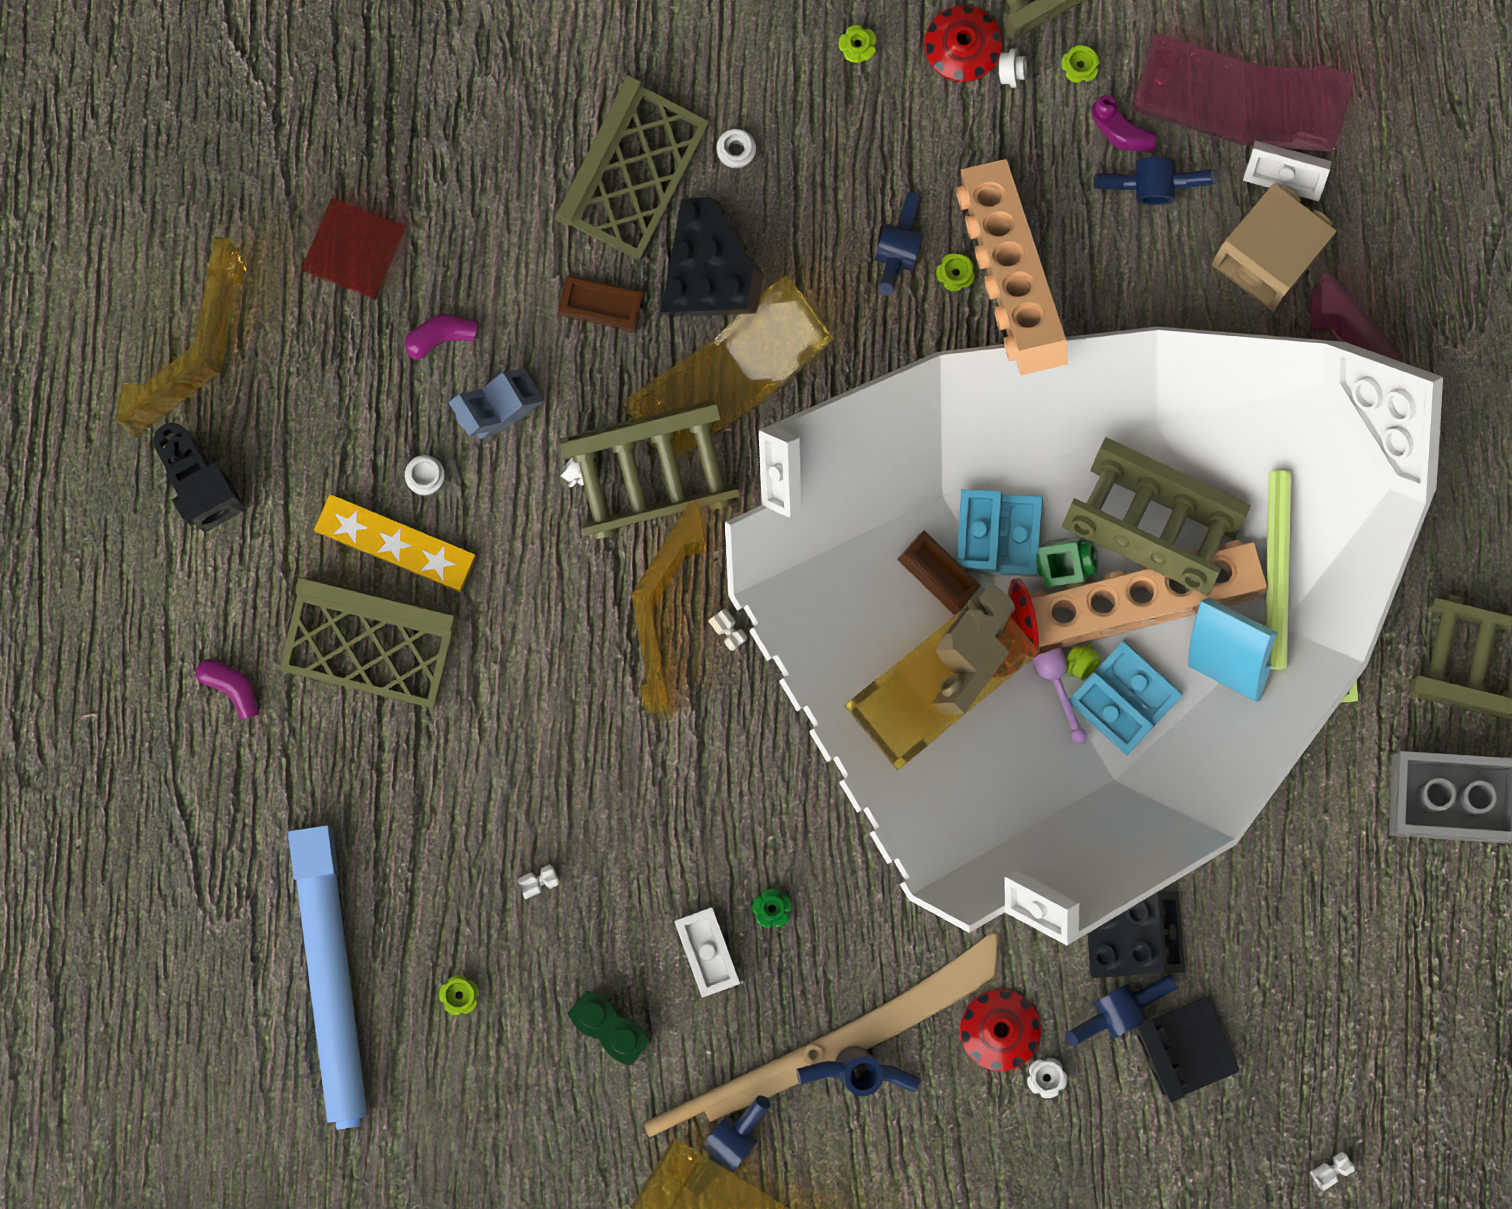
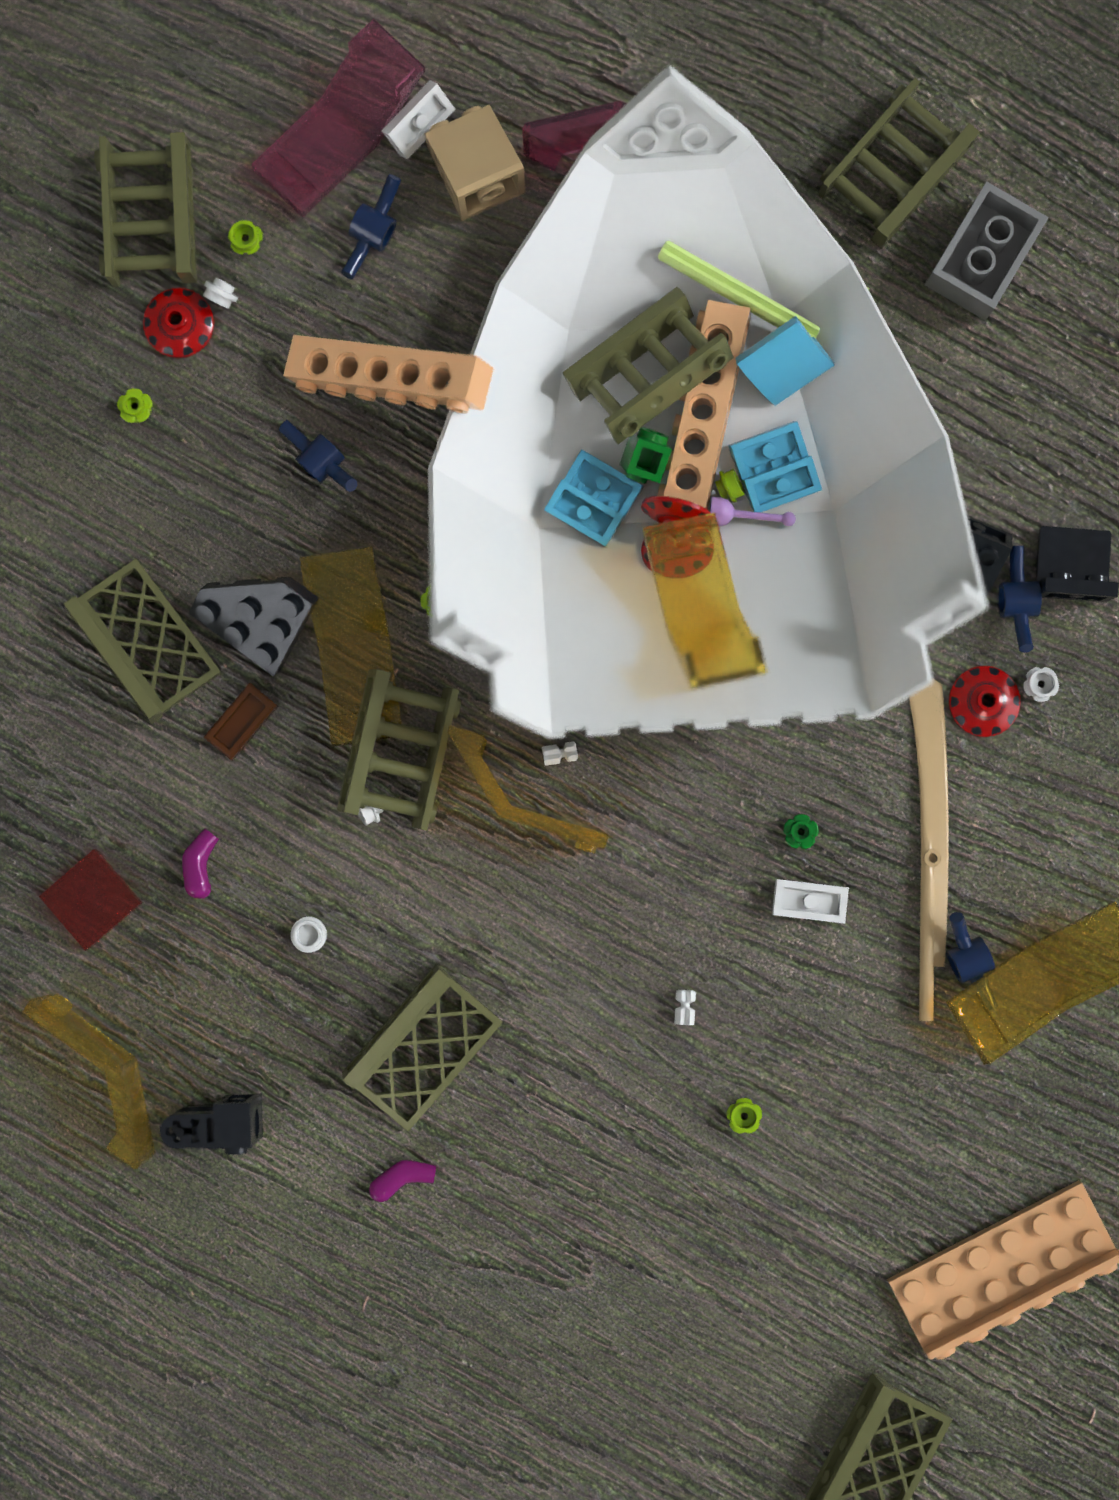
camera: 65 degrees left, 5 degrees up
(328, 972) = (589, 1184): light blue brick -> none
(395, 543) = (351, 986): yellow tile -> none
(497, 404) = (281, 847): sand blue brick -> none
(601, 1021) = (824, 1014): dark green brick -> none
(740, 137) = (164, 538): white plate -> none
(868, 1082) = (976, 832): dark blue piece -> none
(939, 572) = (603, 561): reddish brown tile -> none
(961, 263) = (361, 415): lime plate -> none
(973, 649) = (691, 563): dark tan plate -> none
(1118, 130) = (315, 235): magenta arm -> none

